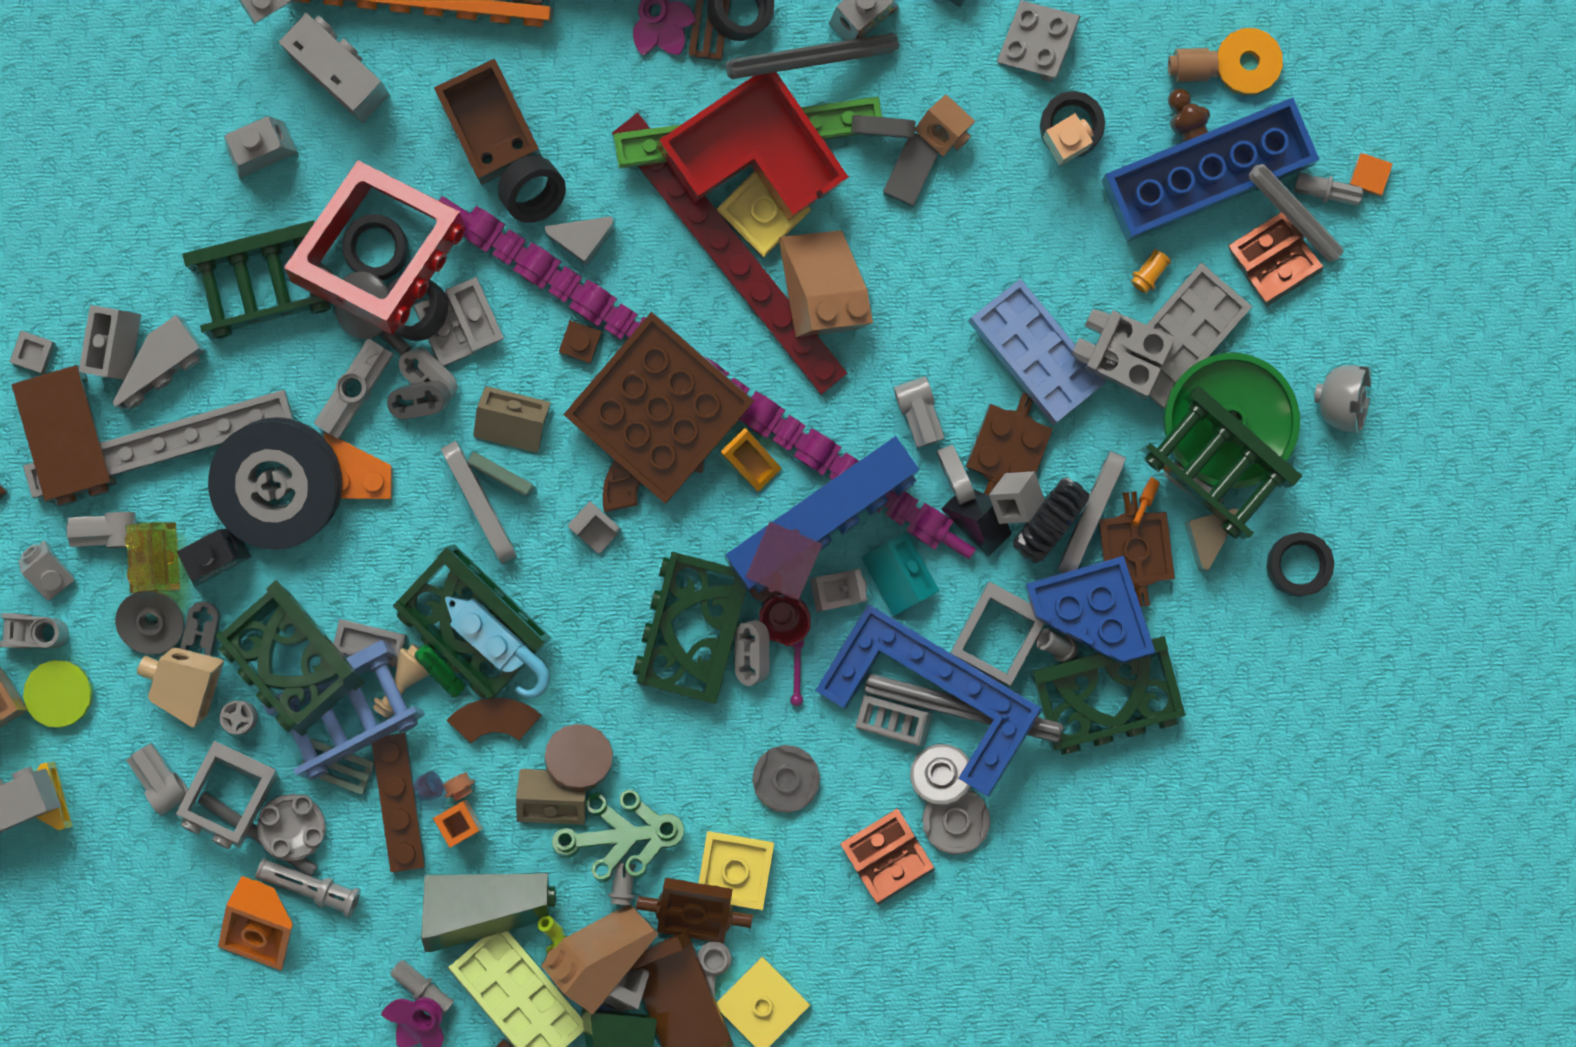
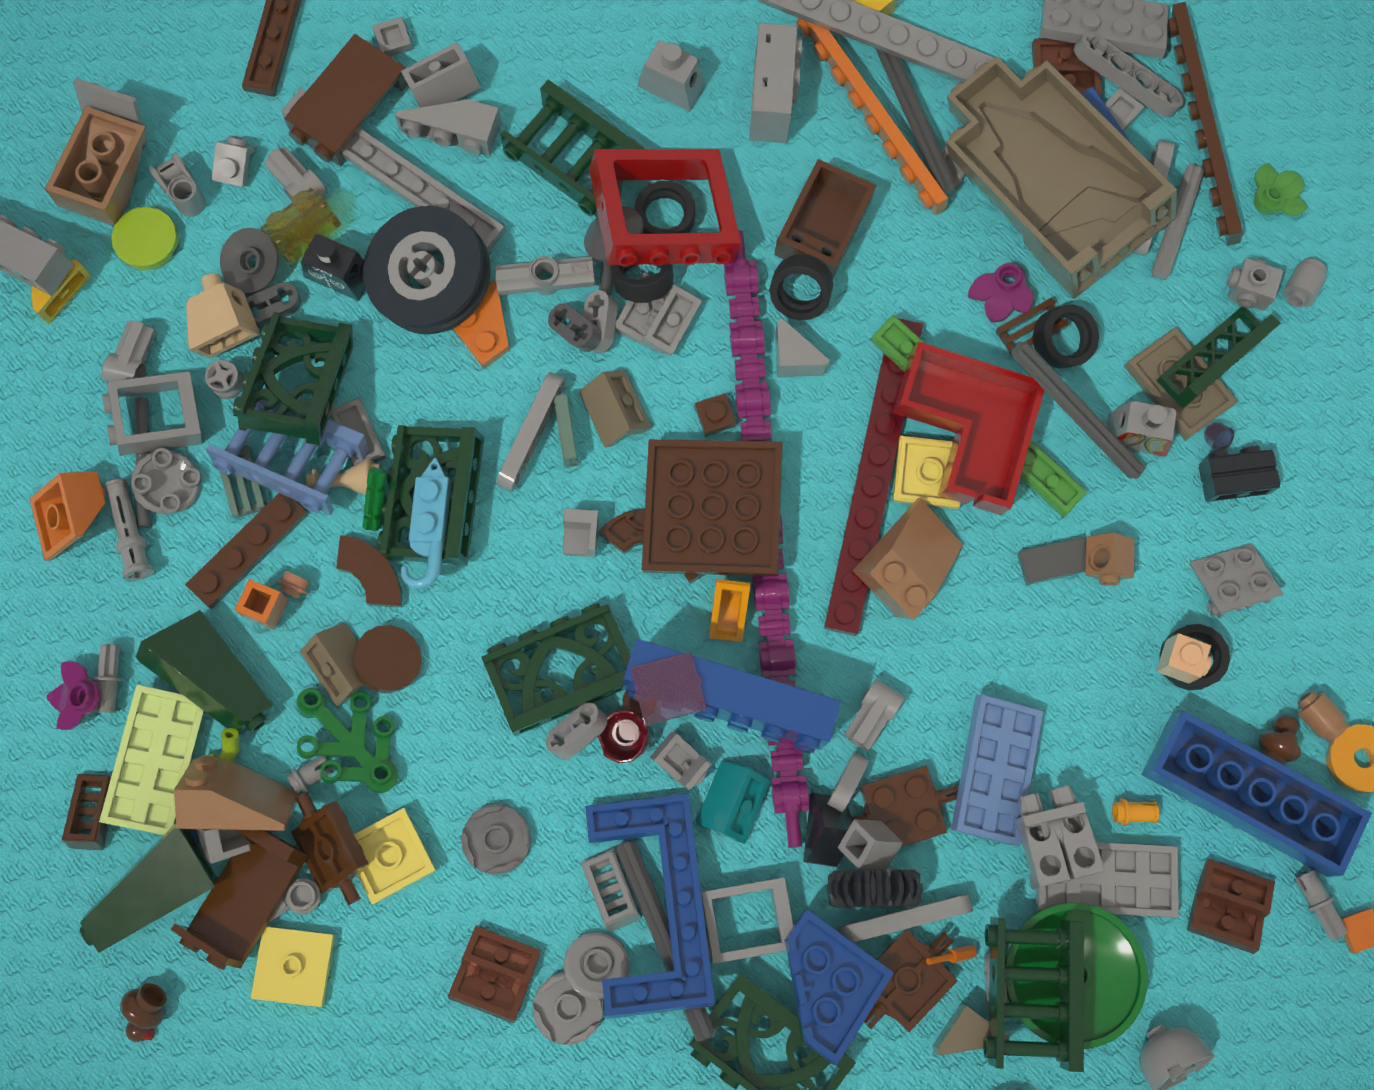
camera: 50 degrees right, 10 degrees down
(428, 786) = (284, 563): hinge -> none
(797, 699) = (568, 797): magenta hinge -> none
(883, 126) = (1069, 510): dark grey beam -> none
(1061, 647) = (778, 983): light grey pin -> none
(1296, 212) = (1284, 891): light grey axle -> none

